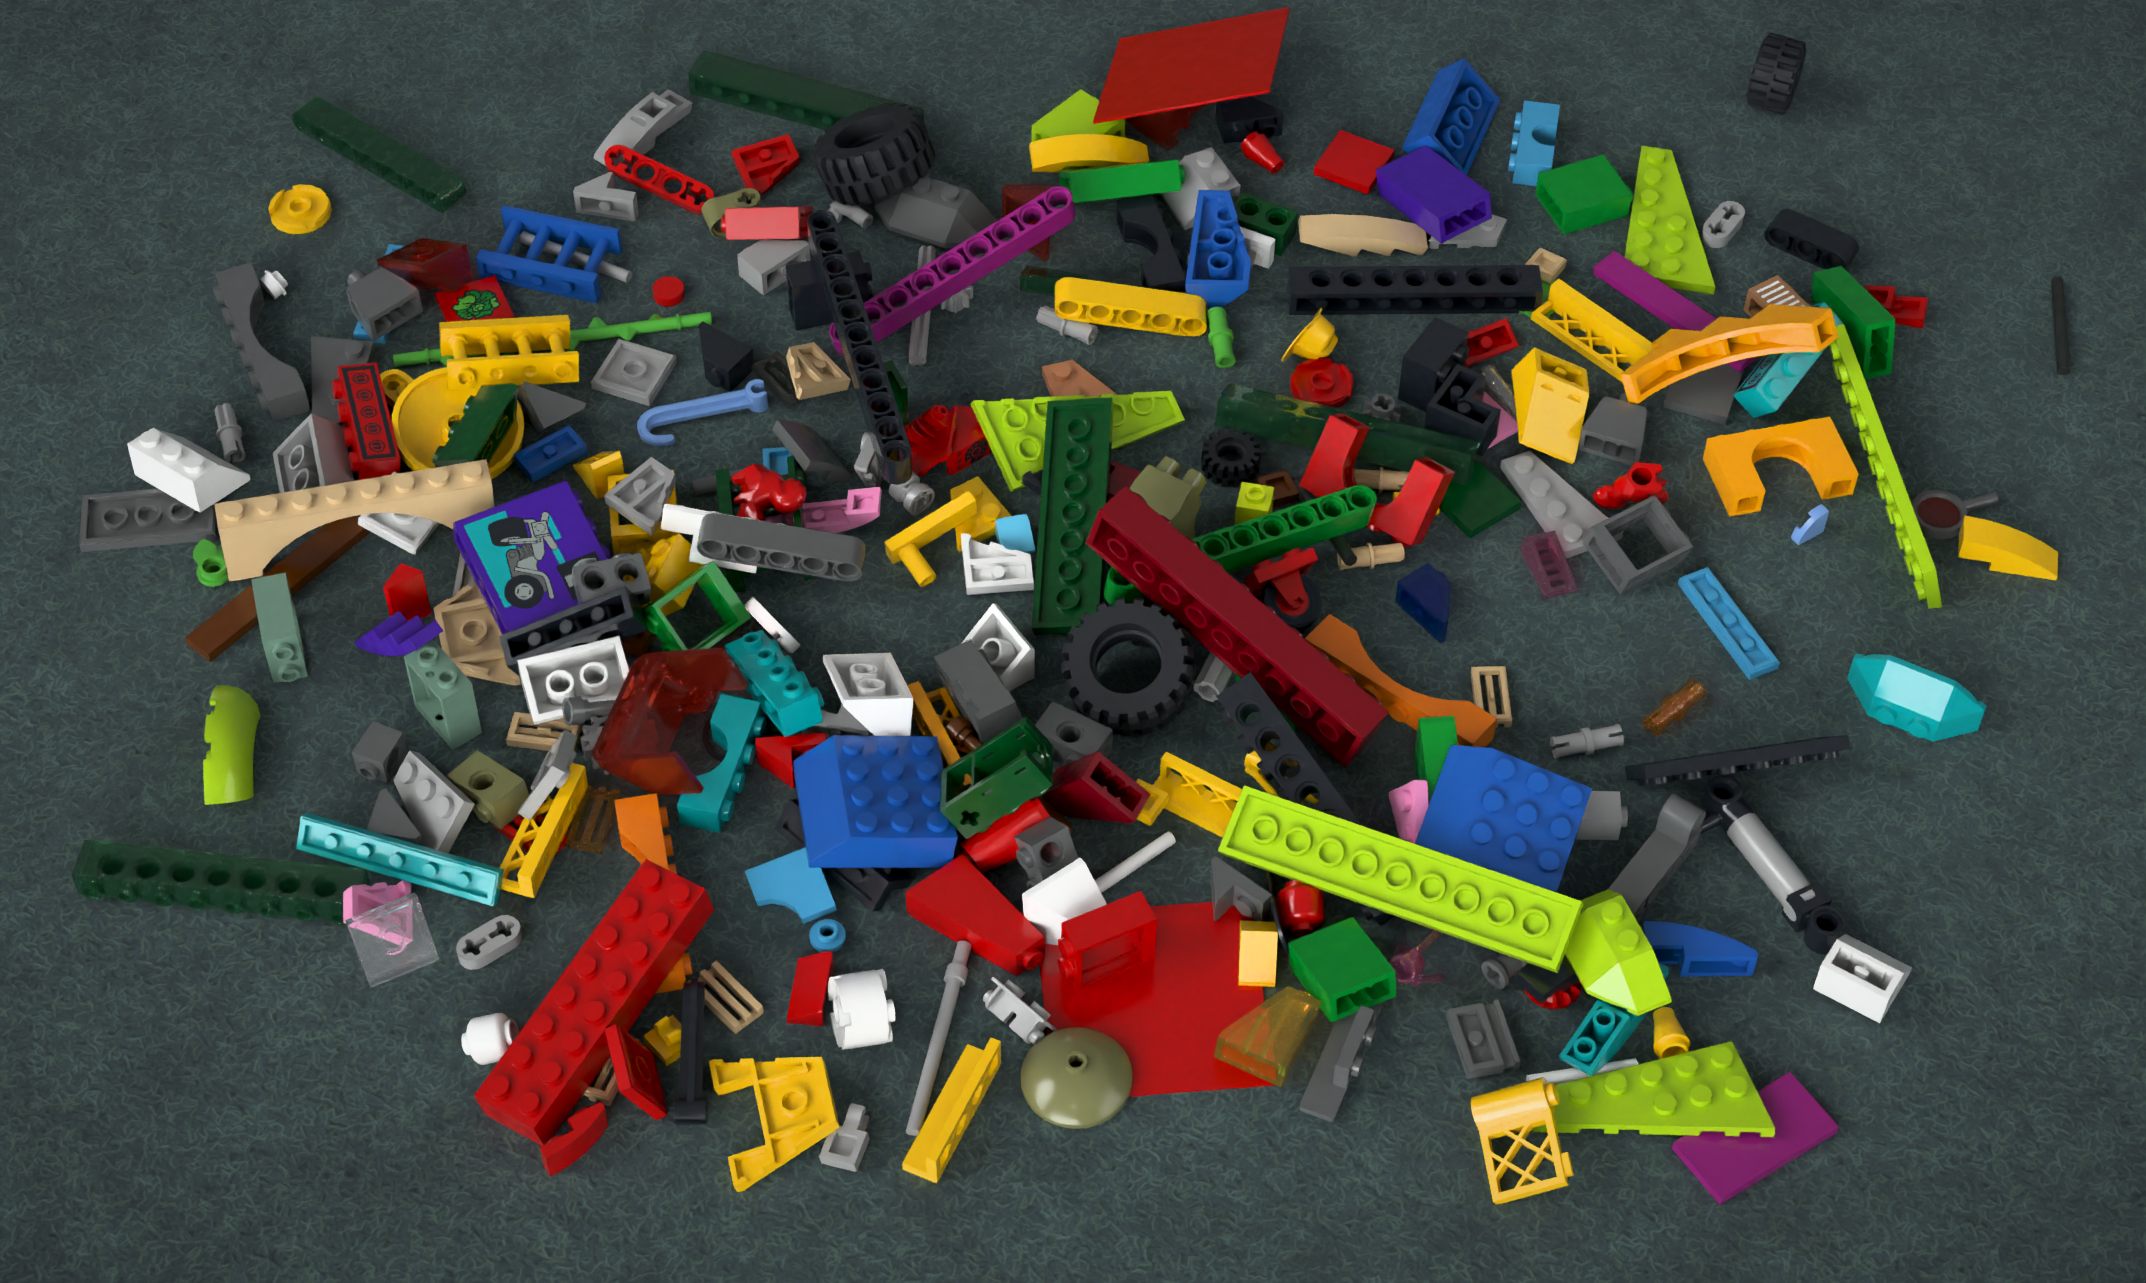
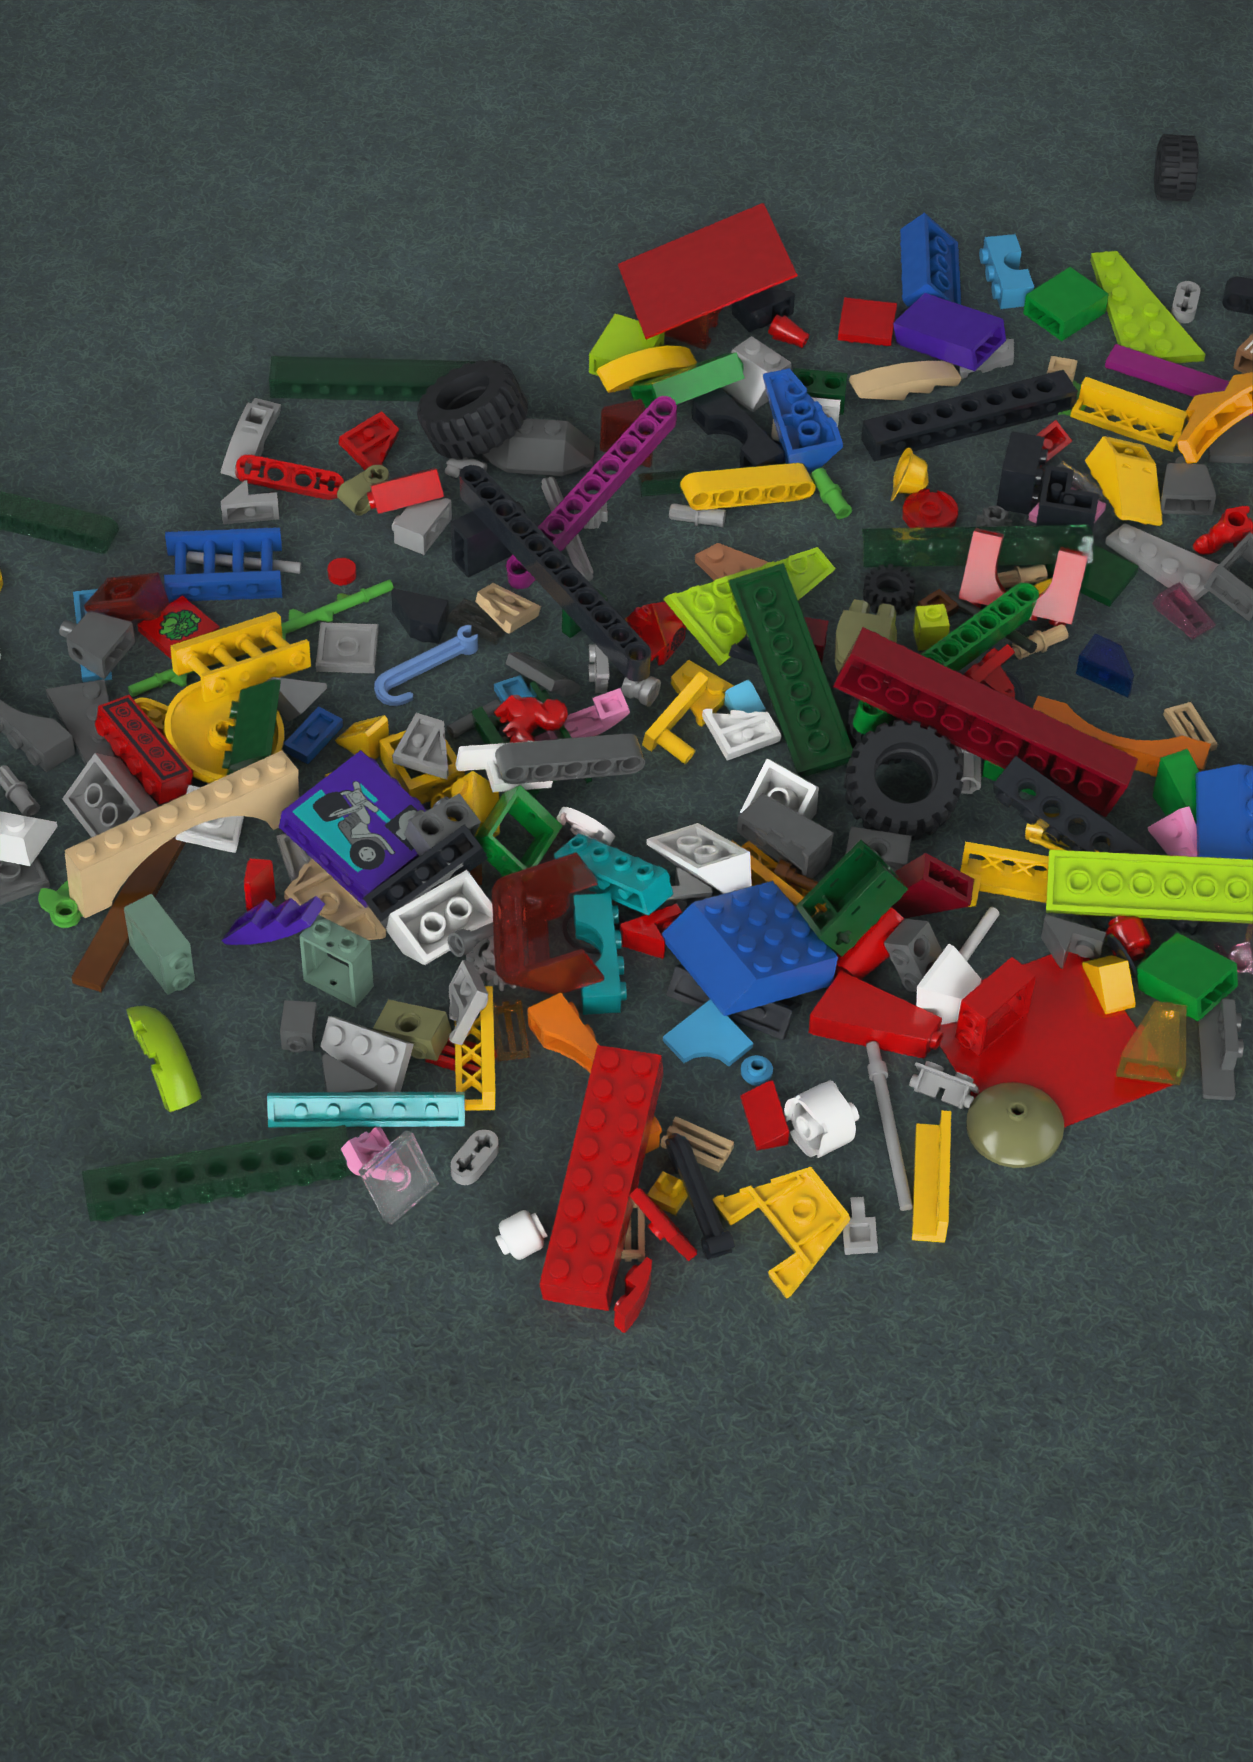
camera: 20 degrees left, 0 degrees up
(539, 738) = (430, 974): tan tile -> none

